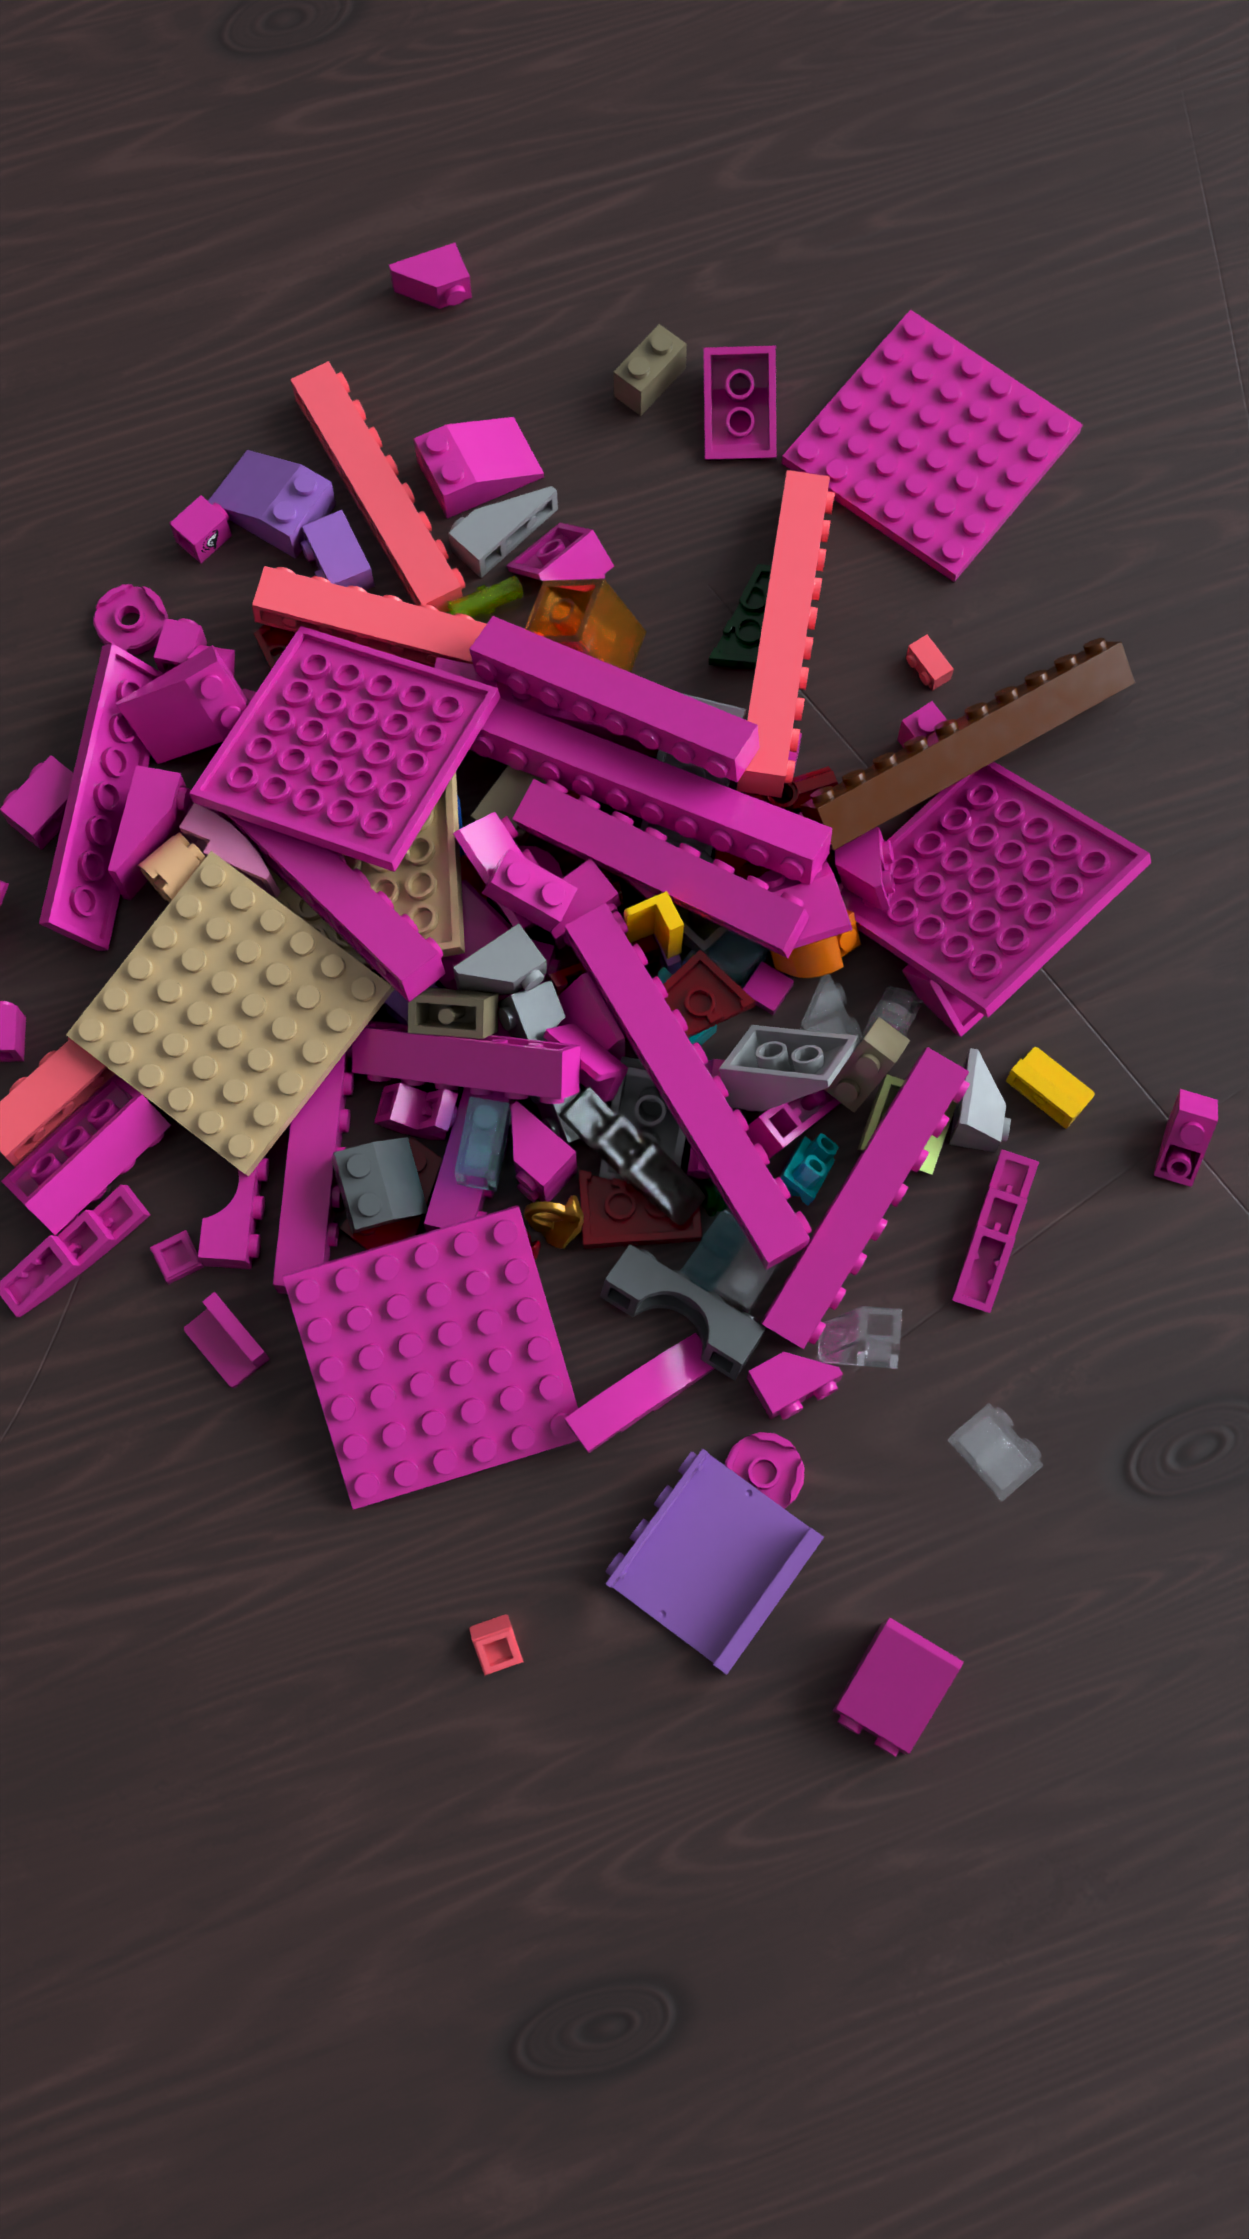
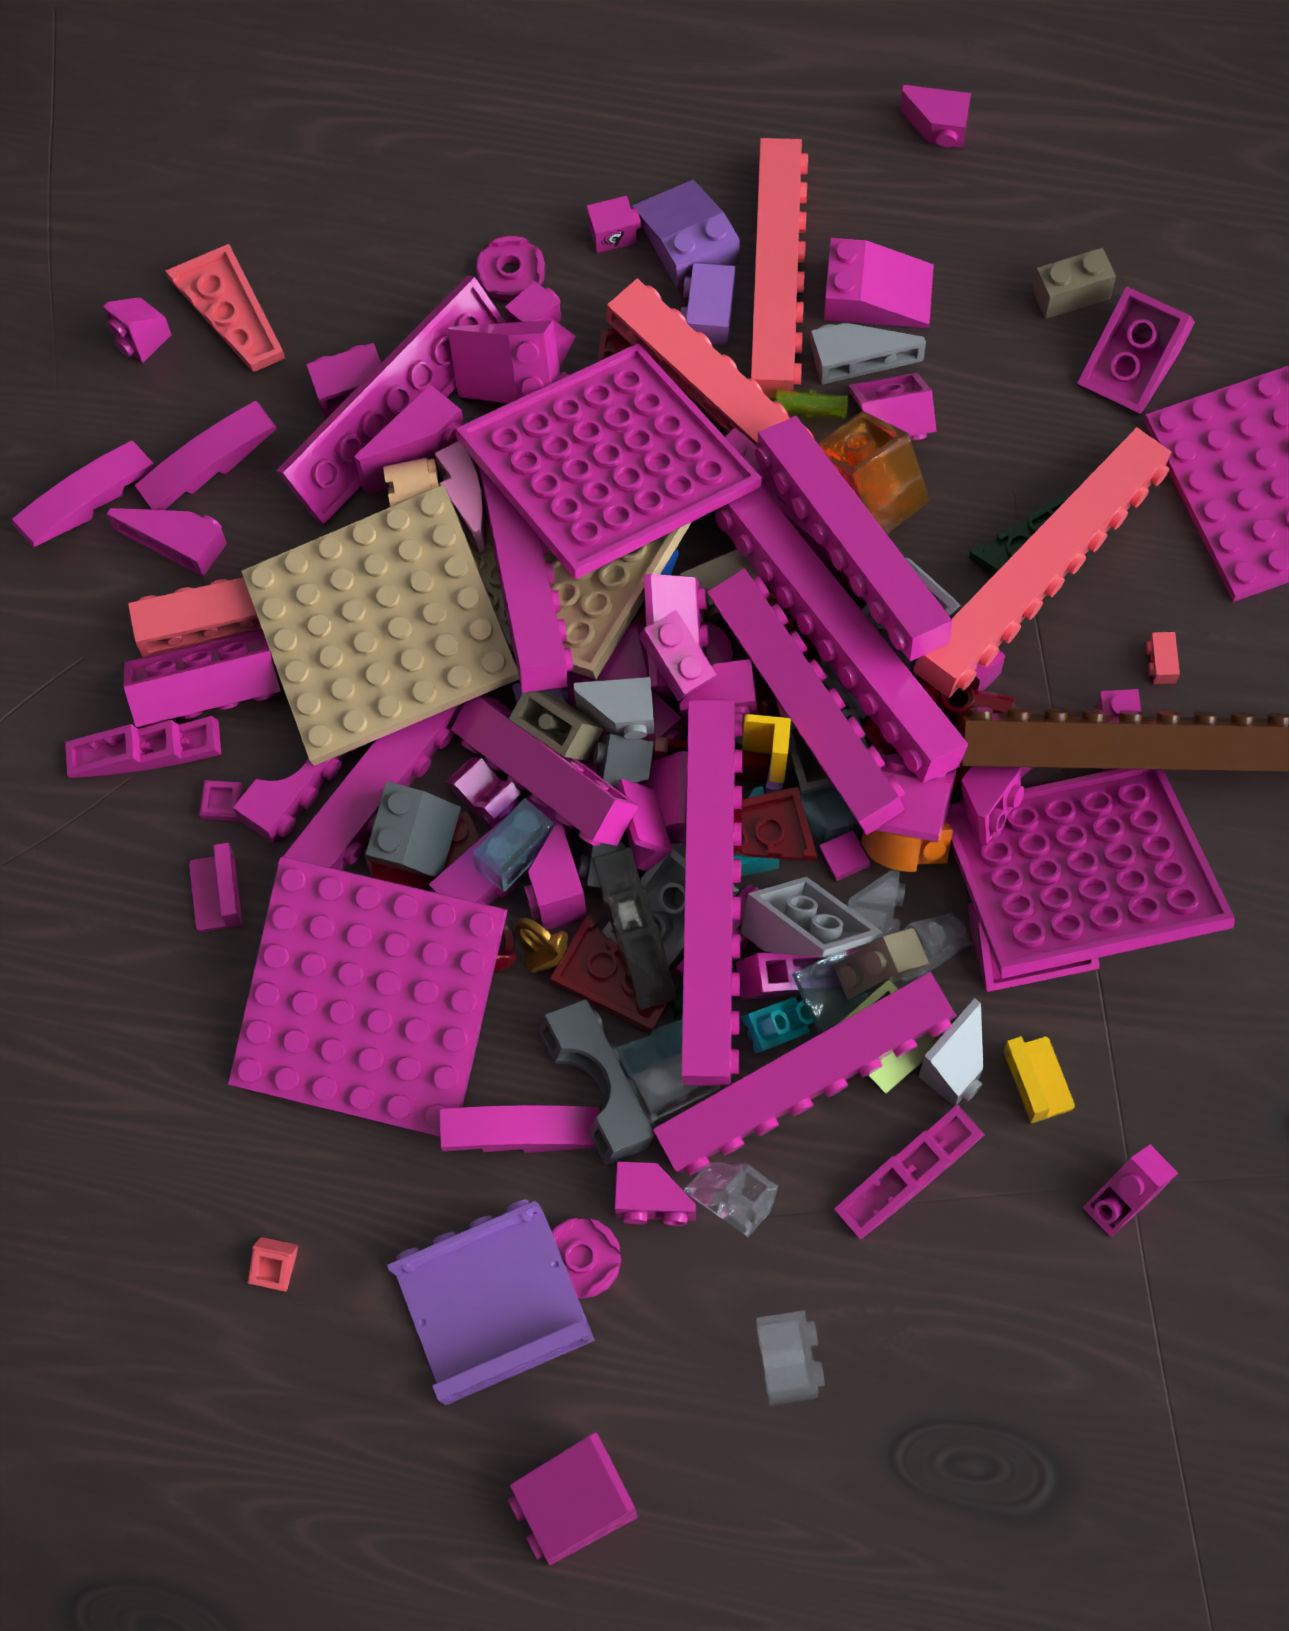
camera: 35 degrees right, 5 degrees down
(834, 1120) = (824, 993): none -> clear light blue piece

